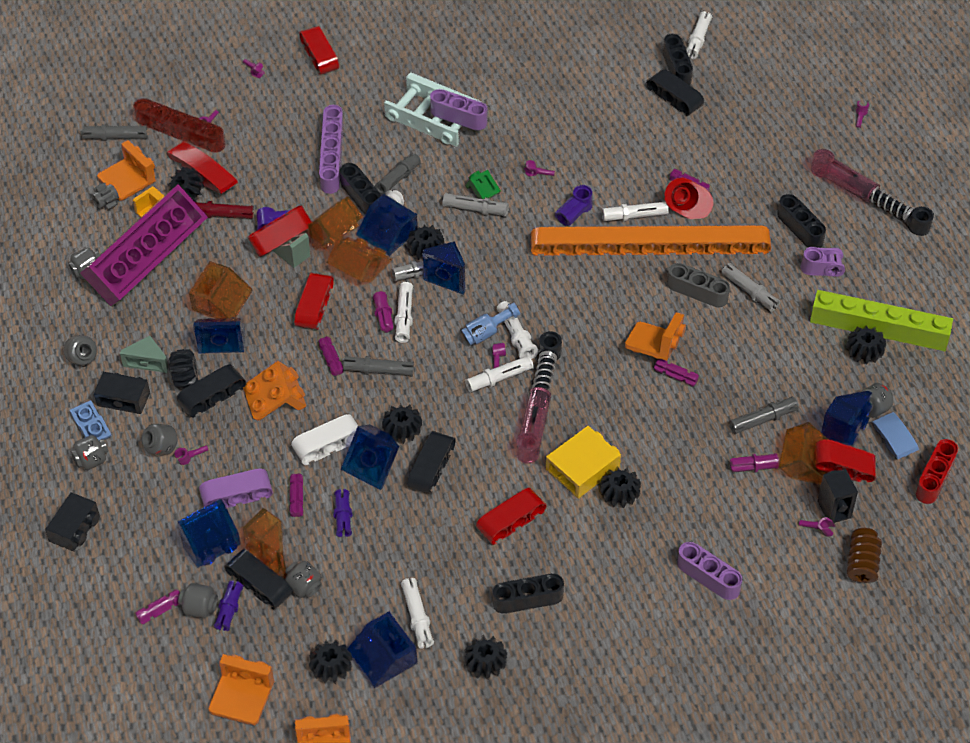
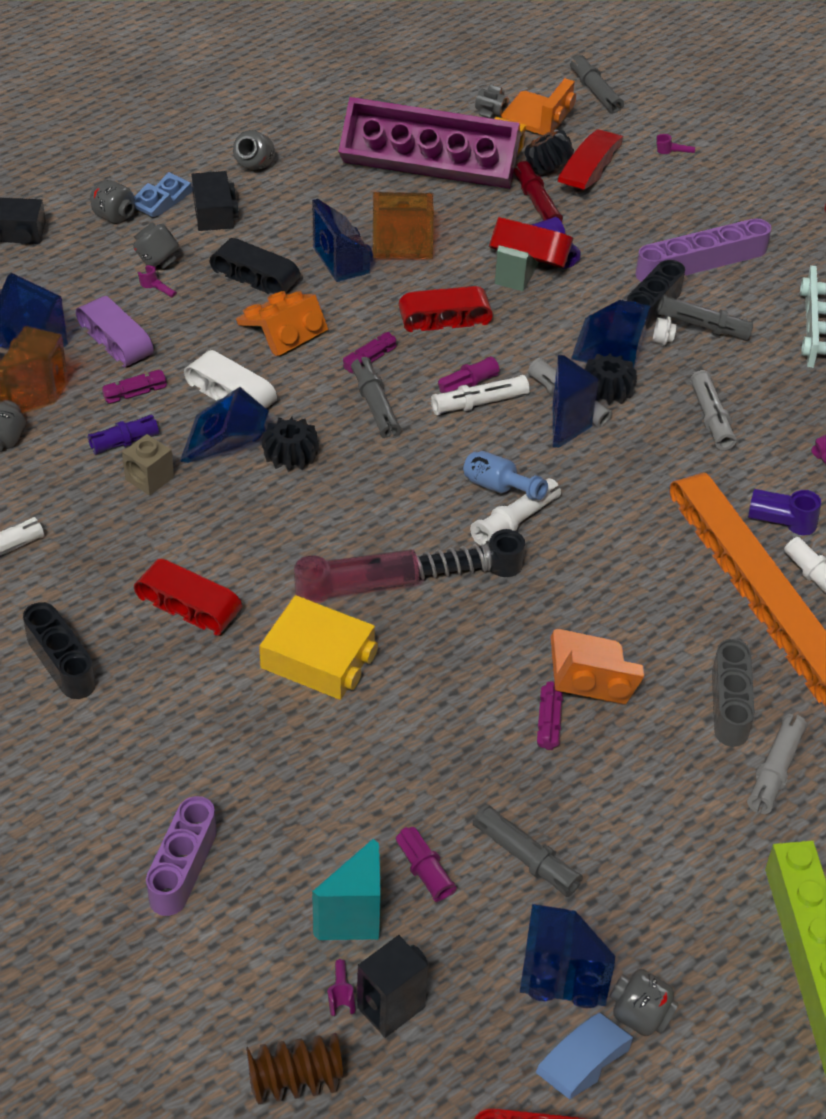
camera: 65 degrees right, 5 degrees down
(144, 355) = (279, 201): sand green slope -> none
(179, 125) = (642, 124): clear red beam -> none
(183, 368) = (268, 229): black gear -> none
(255, 68) = (785, 158): magenta hand -> none
(334, 223) = (566, 276): clear orange slope -> none
(358, 259) = (537, 325): clear orange slope -> none
(387, 503) = (148, 464): none -> dark tan brick
(430, 462) = (241, 489): black beam -> none
(483, 185) = (750, 405): green bracket -> none
(490, 377) = (418, 508): white pin -> none
(498, 351) = (469, 503): magenta hand -> none
(620, 487) = (292, 702): black gear -> none
(774, 492) = (349, 899): none -> teal slope
(799, 453) = (472, 934): clear orange slope -> none
(838, 456) = (473, 980): red beam -> none
(866, 344) = (758, 957): black gear -> none

